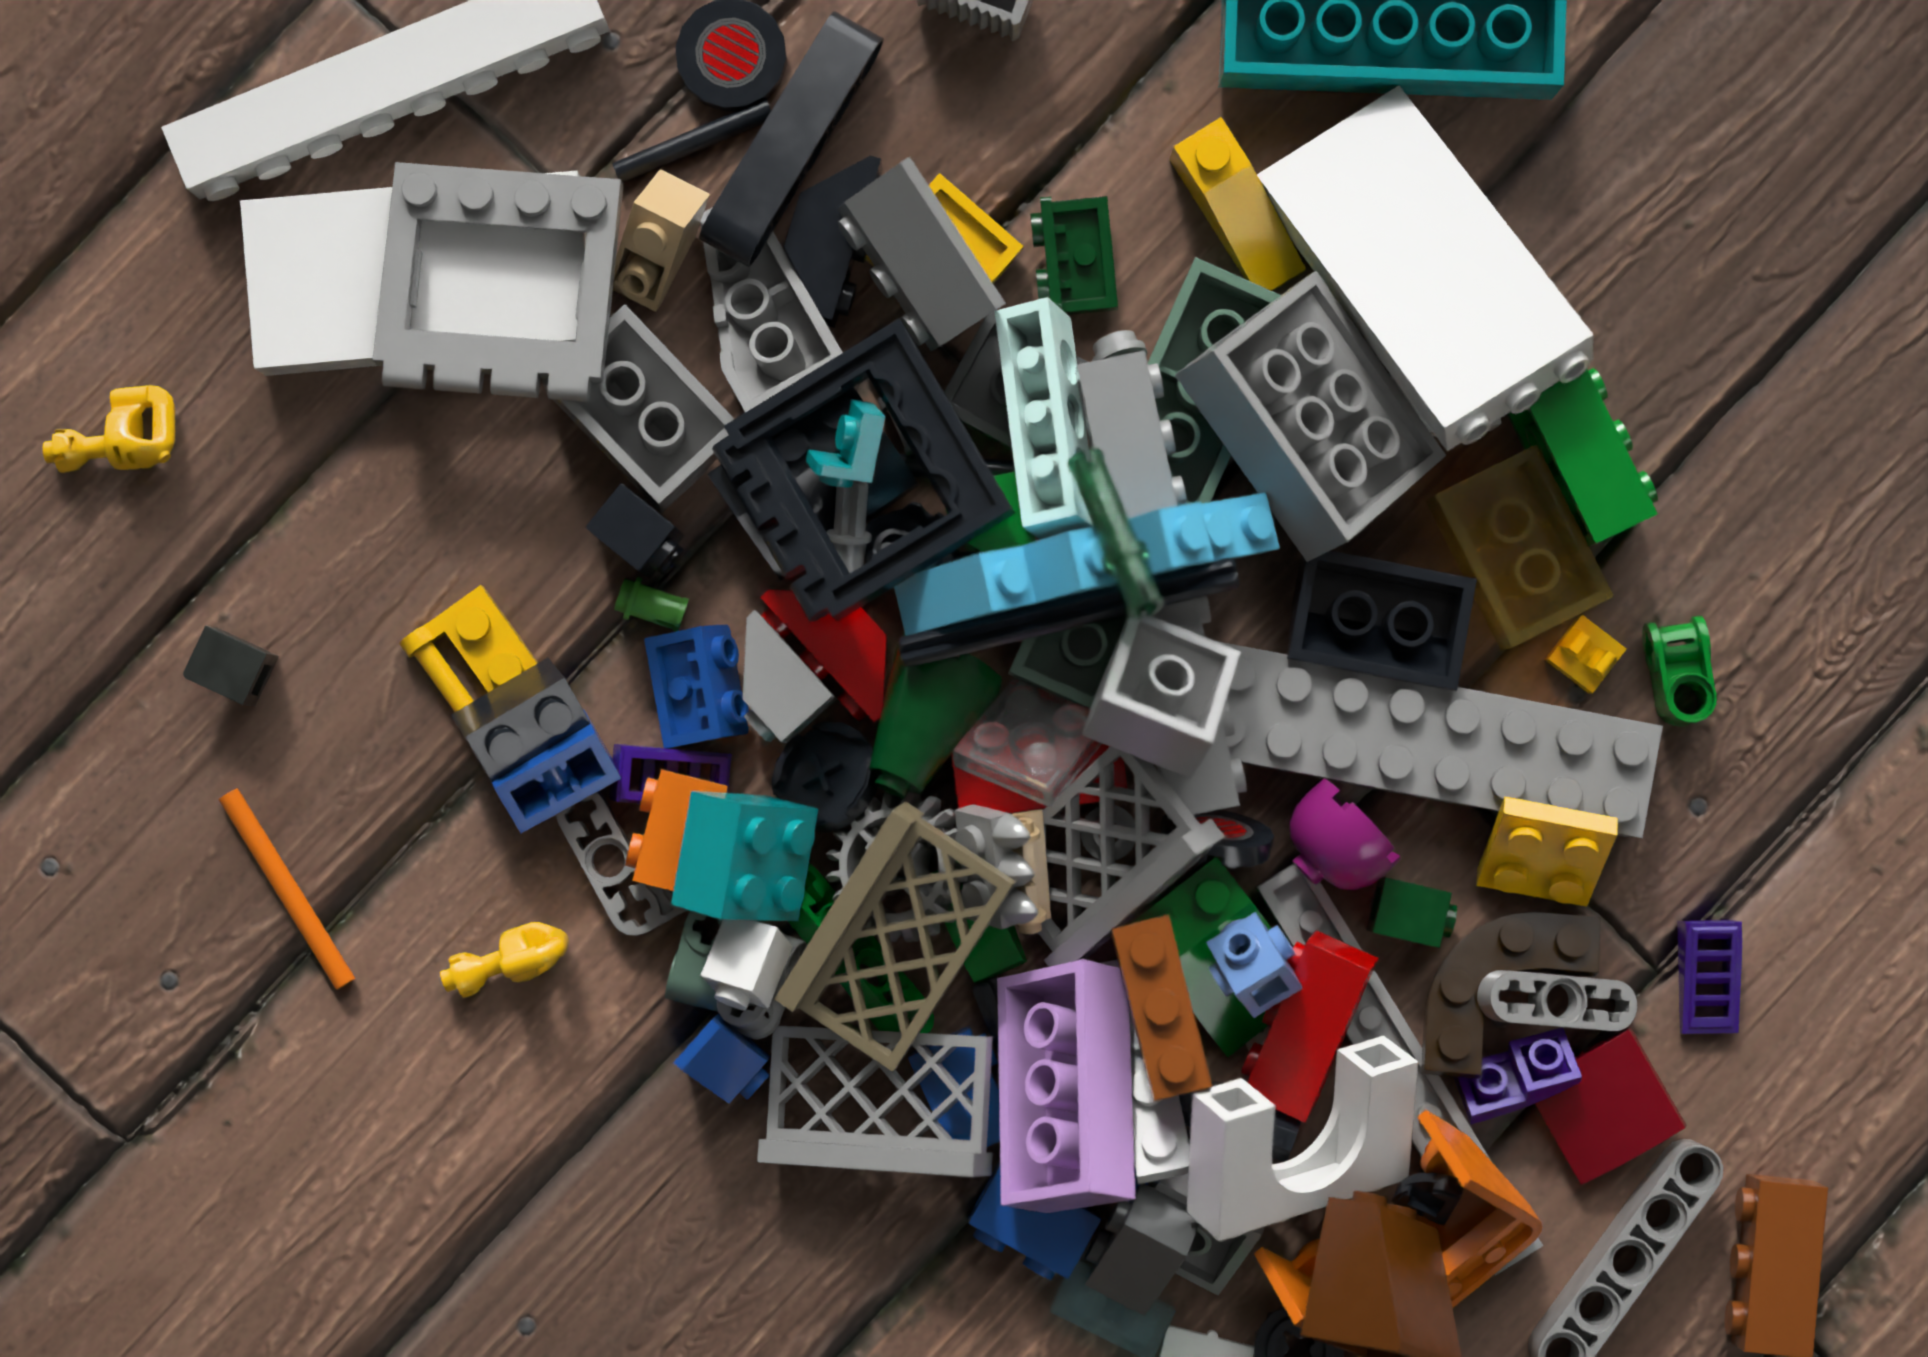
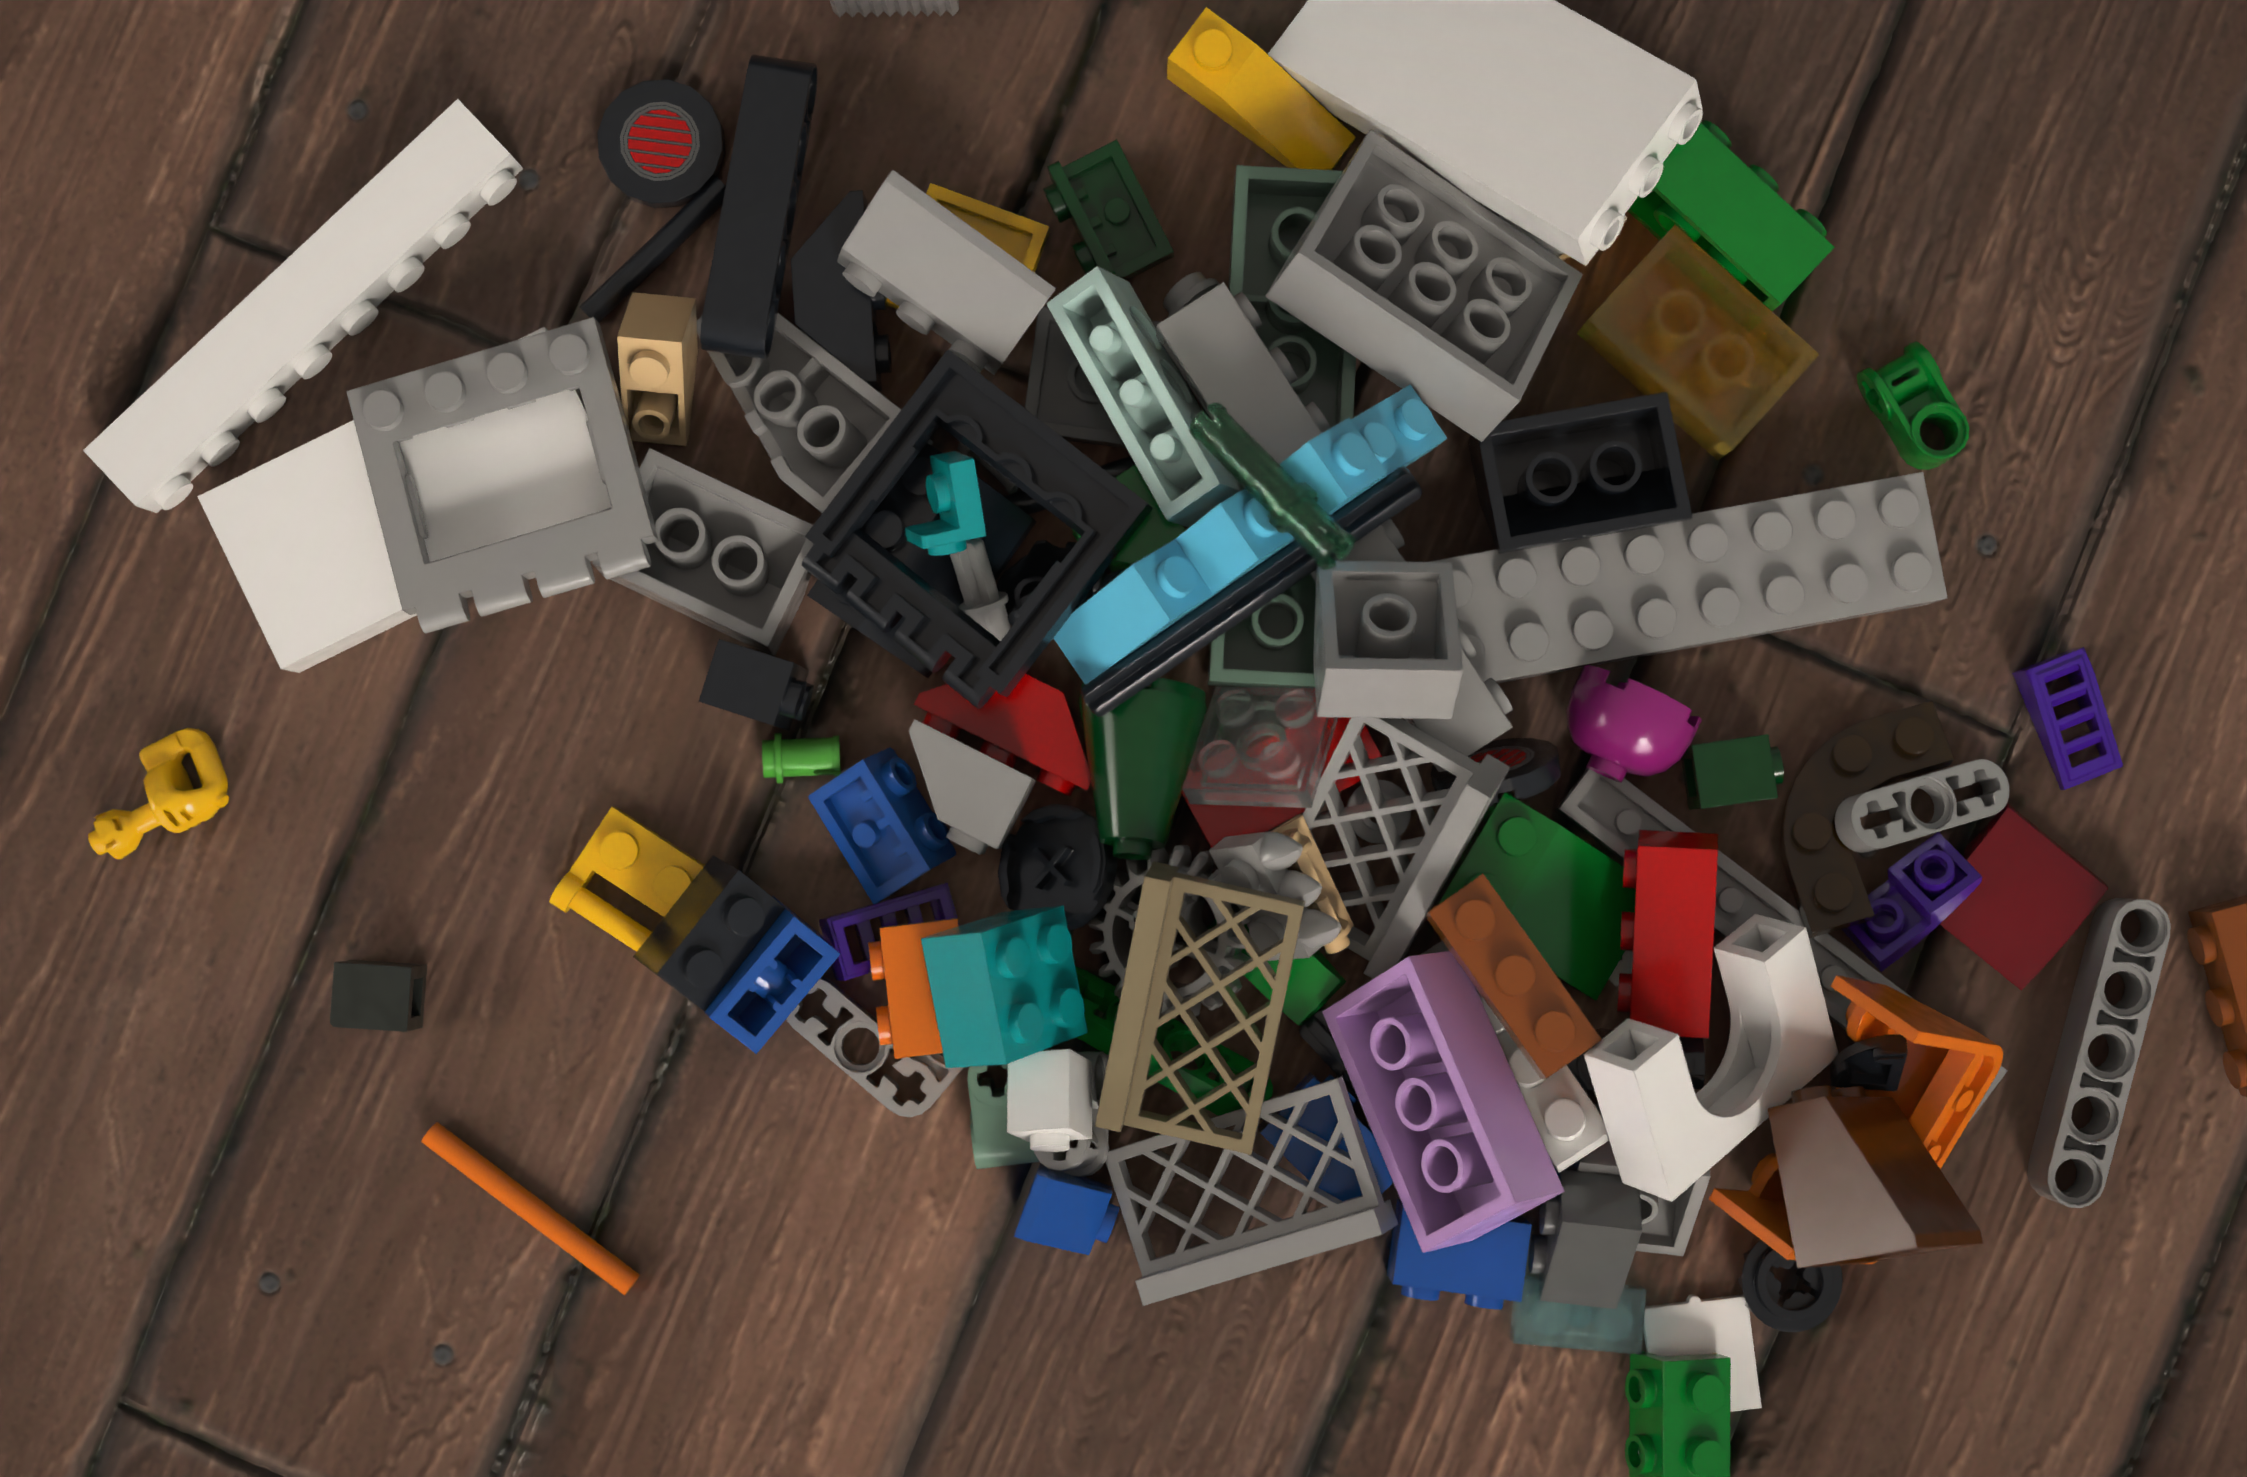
camera: 20 degrees left, 0 degrees up
(521, 956) = (807, 1184): yellow piece -> none
(1253, 964) = (1590, 891): medium blue brick -> none
(1546, 851) = (1850, 652): yellow plate -> none
(1585, 654) = (1807, 429): yellow tile -> none

